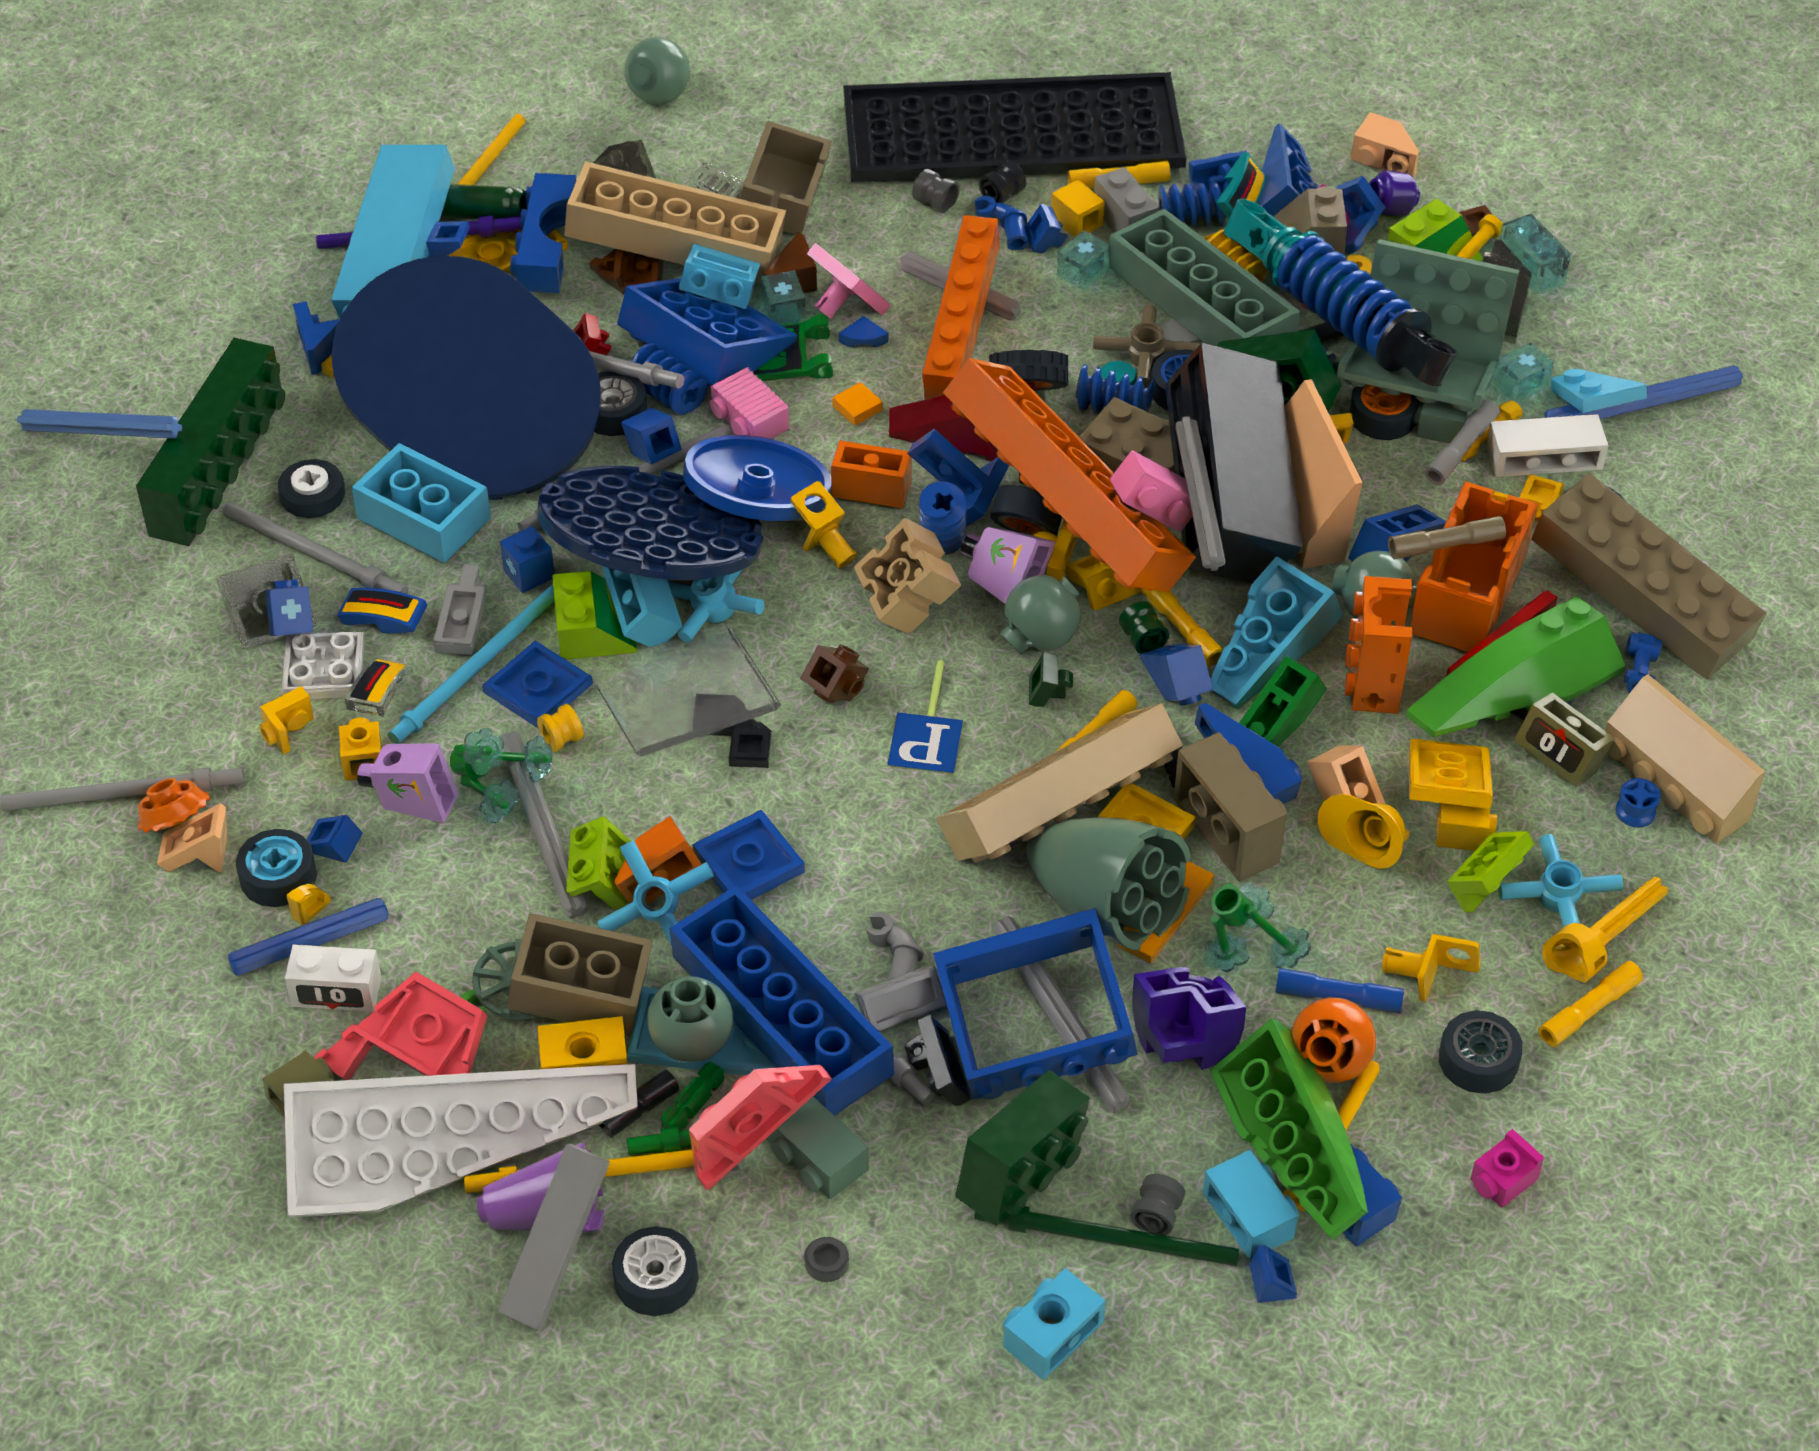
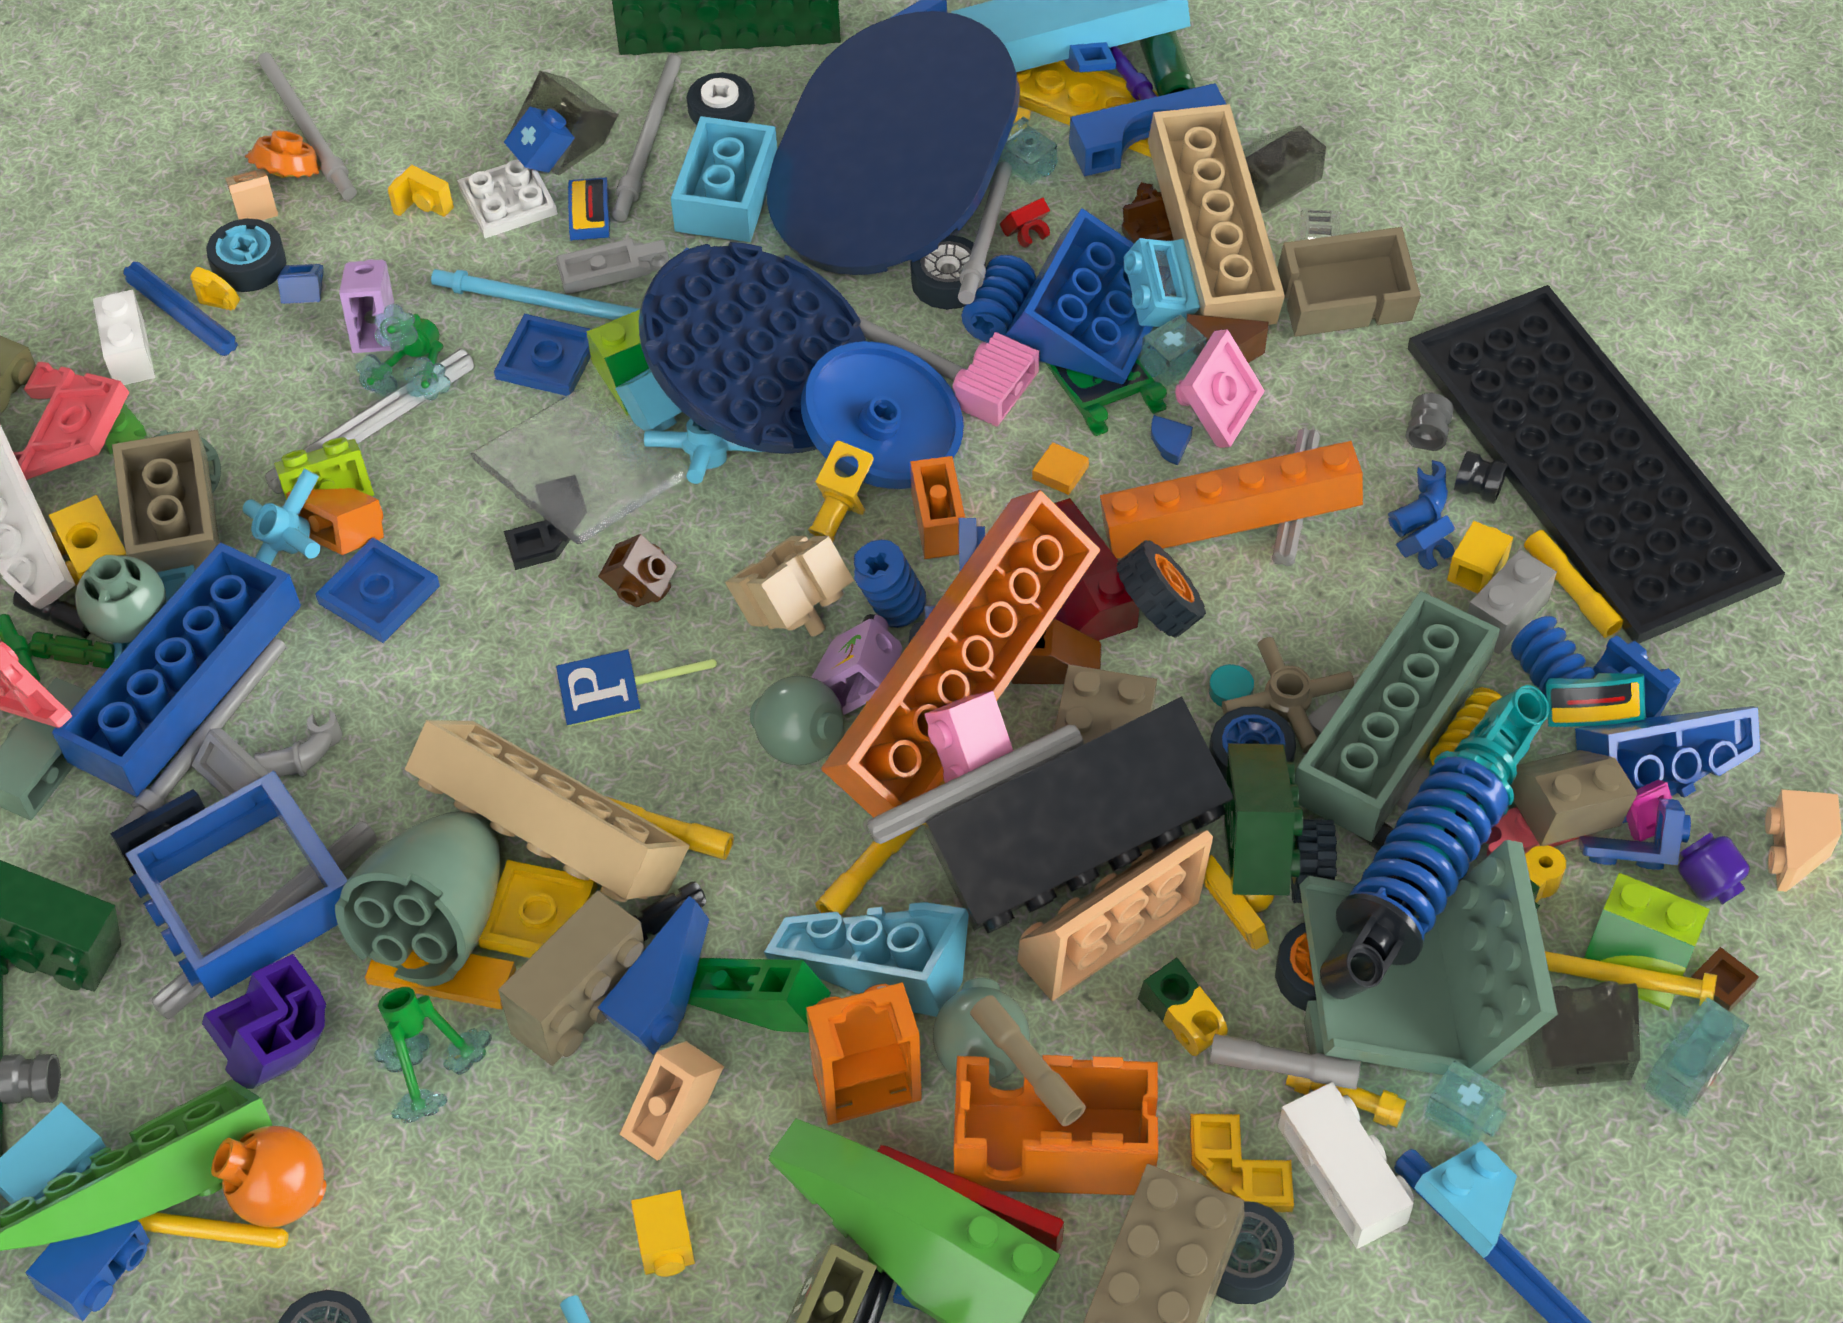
camera: 70 degrees right, 5 degrees up
(357, 742) = (407, 257): yellow brick -> none
(377, 686) = (488, 237): slope -> none
(493, 150) = (1257, 55): yellow piece -> none
(560, 727) = (487, 387): yellow wheel -> none
(651, 435) = (906, 313): blue brick -> none
(657, 70) = (1456, 125): sand green brick -> none
(1048, 681) = (715, 760): dark green tile -> none
(1083, 260) = (1394, 588): clear light blue brick -> none
(1101, 391) = (1185, 672): blue piece -> none
(1142, 625) = (834, 826): dark green wheel -> none
(1178, 672) = (779, 876): blue slope -> none
(1312, 986) = (378, 1203): blue piece -> none
(1363, 829) = (613, 1139): yellow piece -> none
(1378, 529) = (1079, 1026): blue slope -> none
(1390, 485) = (1183, 1007): none -> leg
(1425, 965) = (433, 1250): yellow bracket -> none
(1450, 773) = (717, 1194): yellow tile -> none
(1488, 866) = (589, 1273): lime bracket -> none

